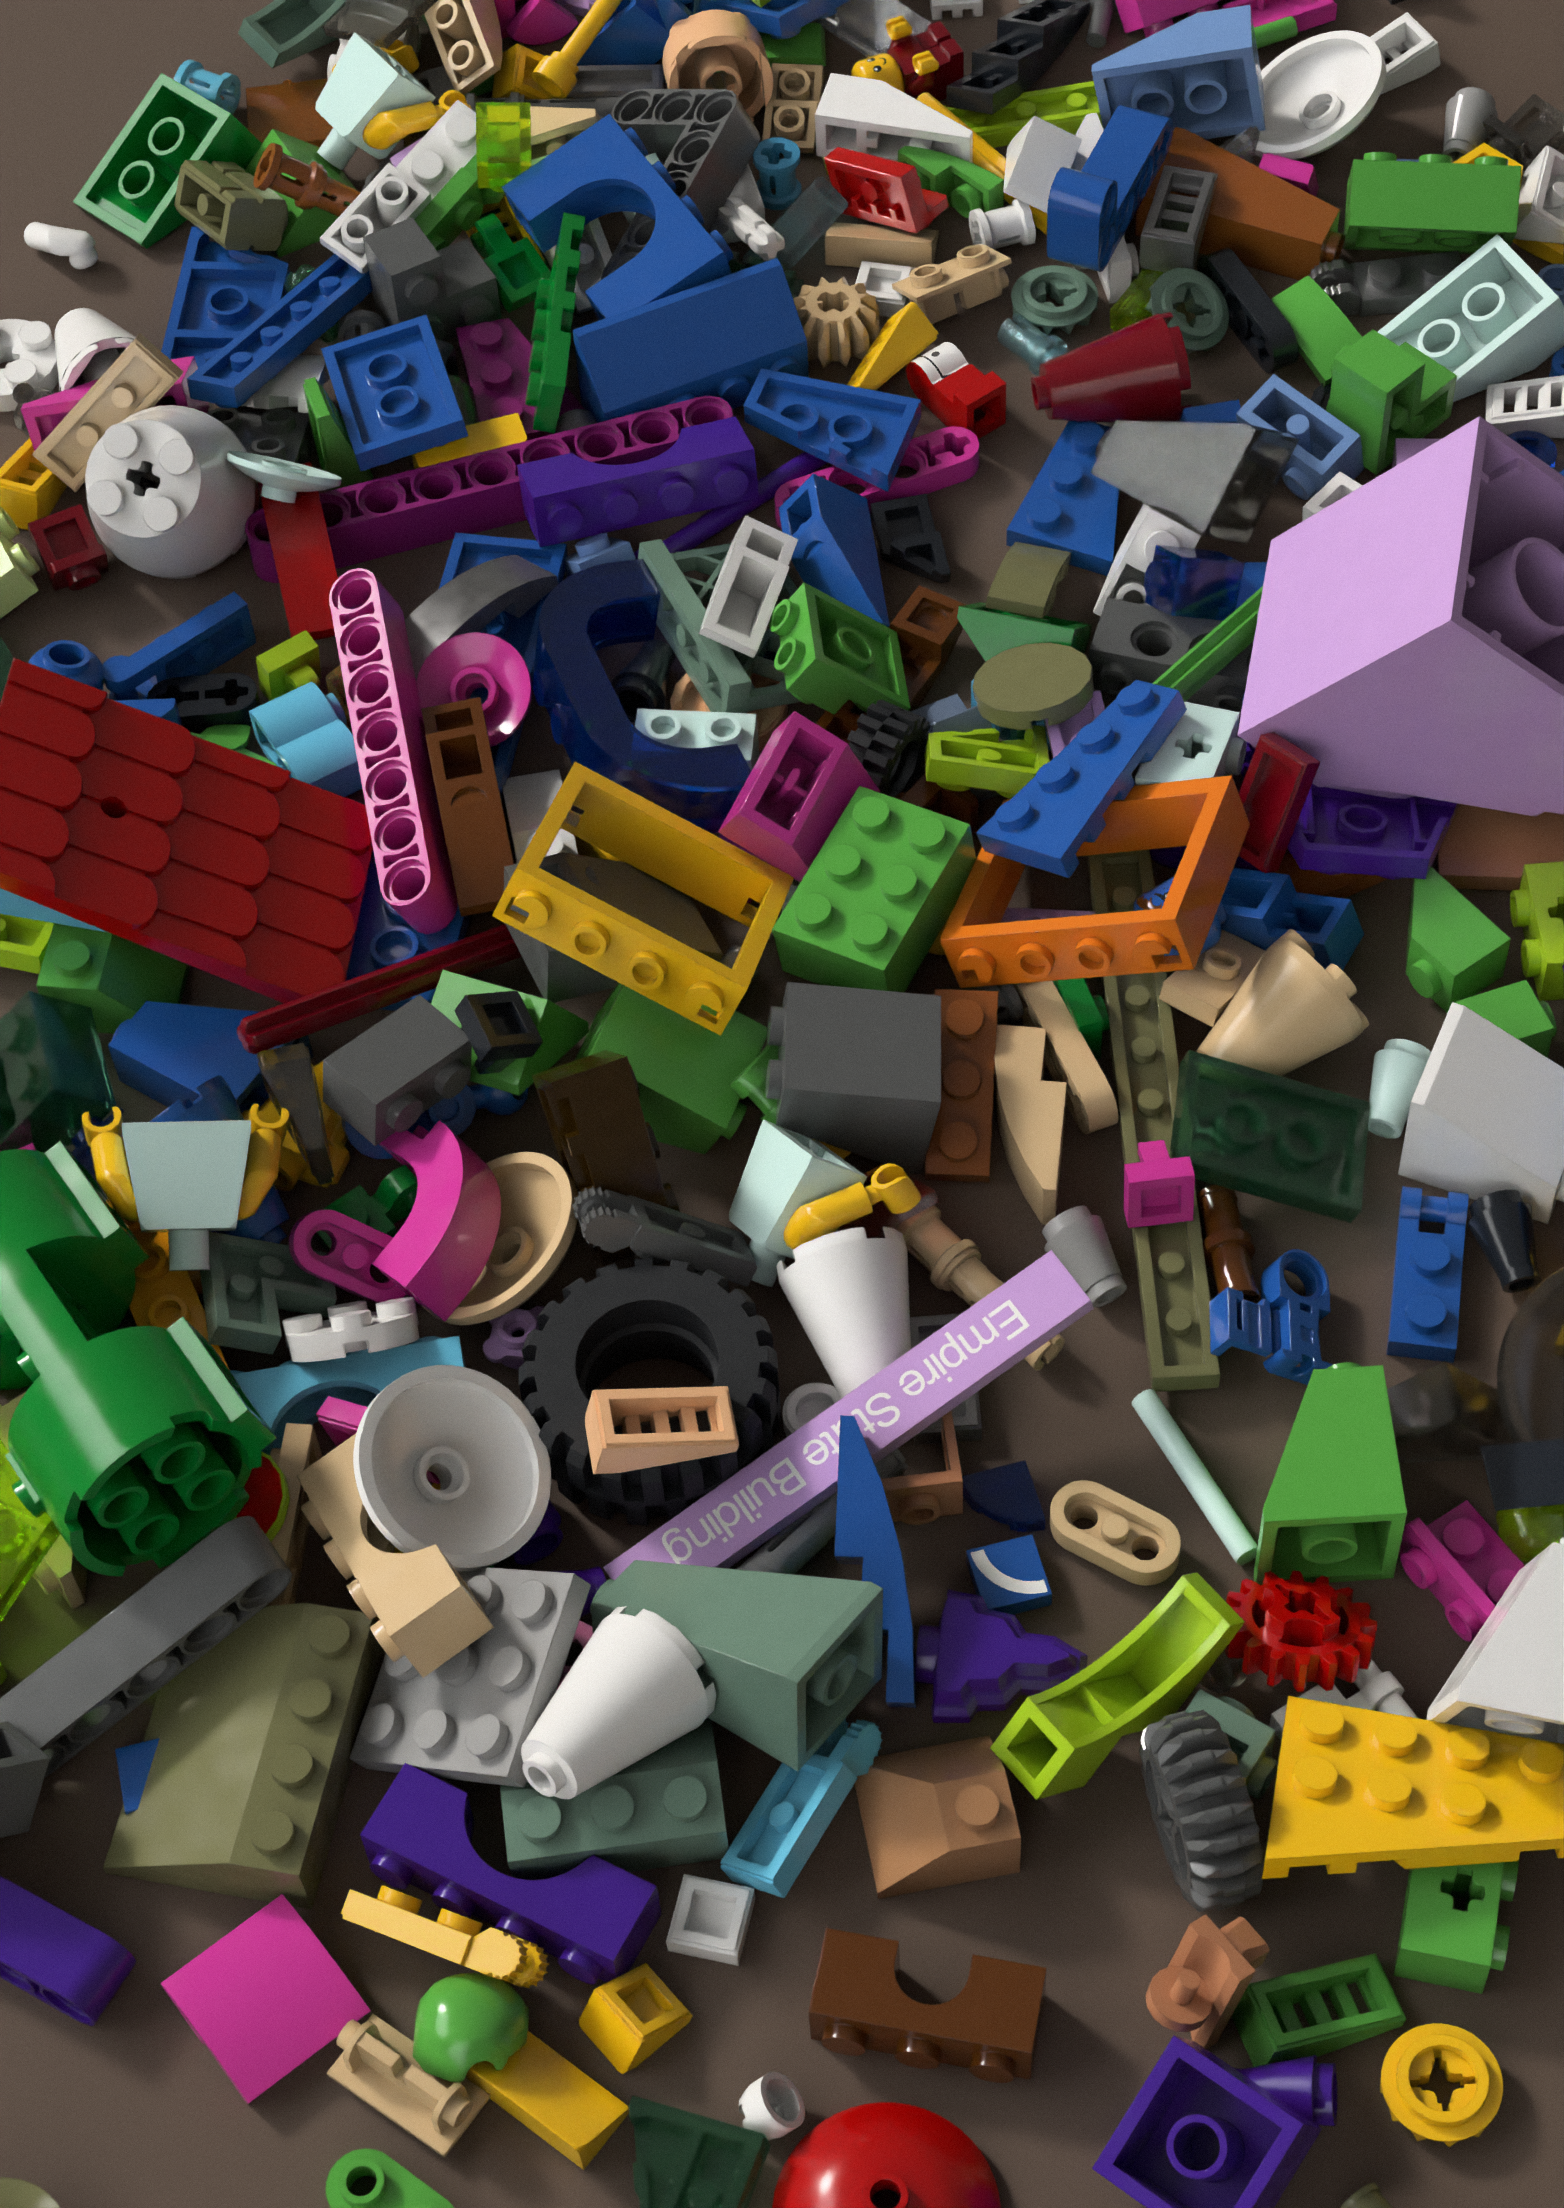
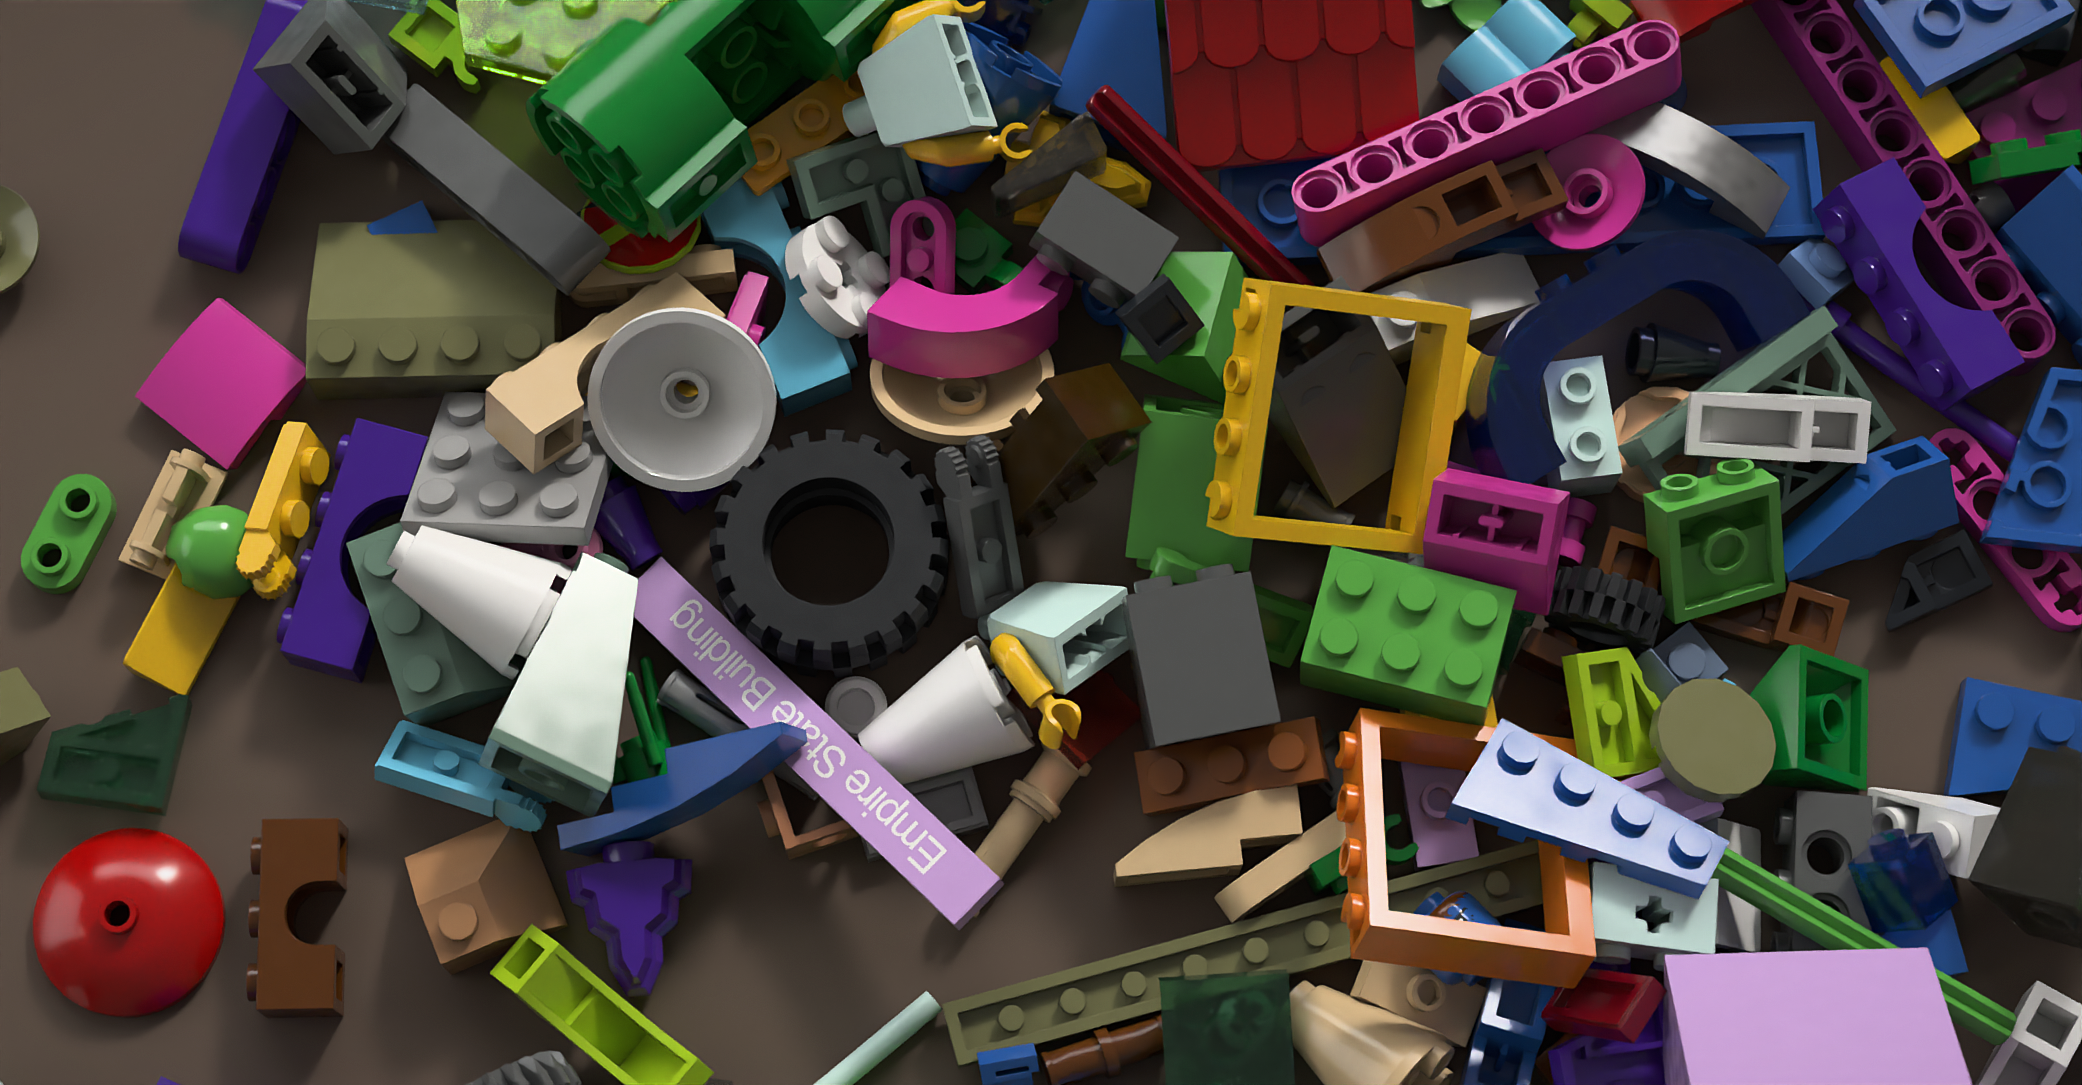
camera: 70 degrees right, 20 degrees up
(502, 1345) = (870, 417): lavender plate -> none
(632, 2017) = (264, 682): yellow slope -> none
(638, 1450) = (735, 519): light nougat slope -> none
(711, 1919) = (357, 724): white tile -> none
(772, 2094) = (183, 816): white hinge -> none
(1006, 1496) = (804, 894): clear blue tile -> none
(1009, 1575) = (723, 911): blue tile -> none
(1028, 580) = (1893, 711): olive slope -> none
(1086, 1253) = (1070, 919): light grey cone -> none
(1119, 1532) = (780, 998): tan plate -> none
(1158, 1187) = (1135, 970): dark pink tile -> none

